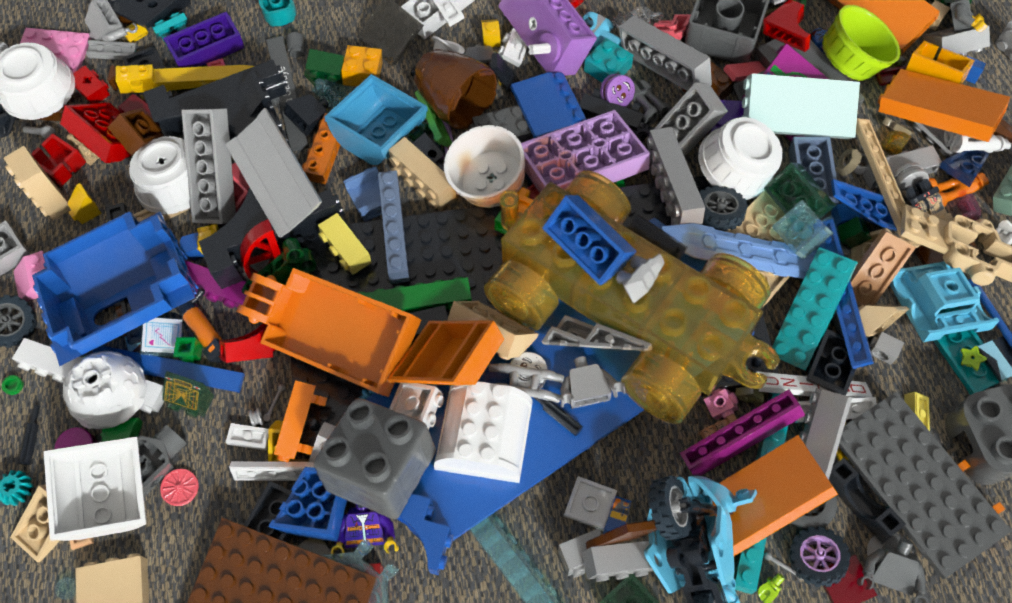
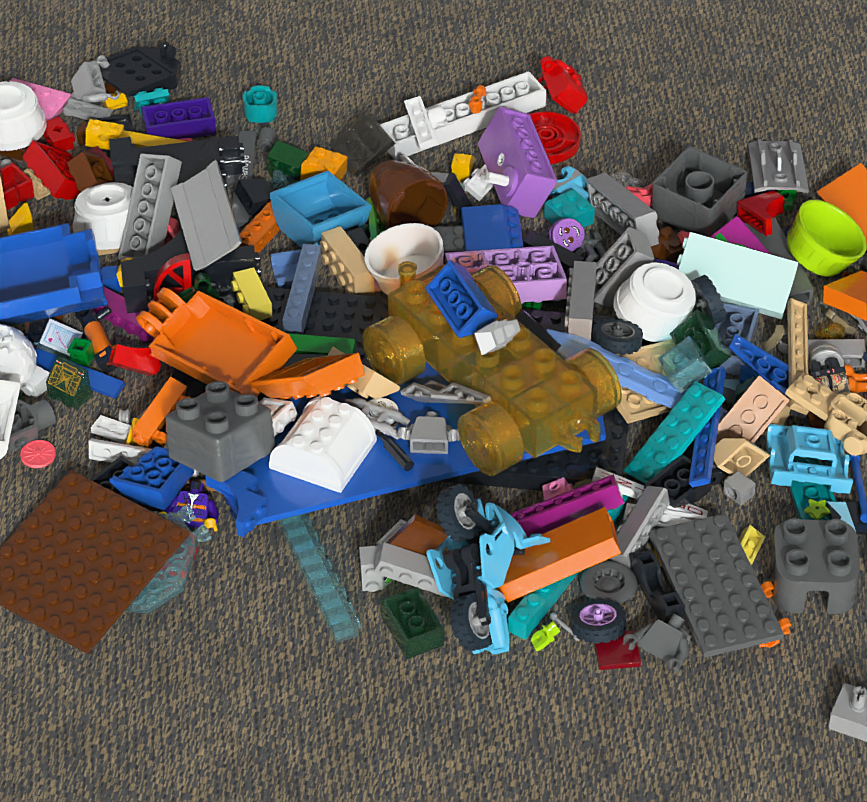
camera: 15 degrees right, 20 degrees down
(793, 143) = (708, 299): none -> black wheel

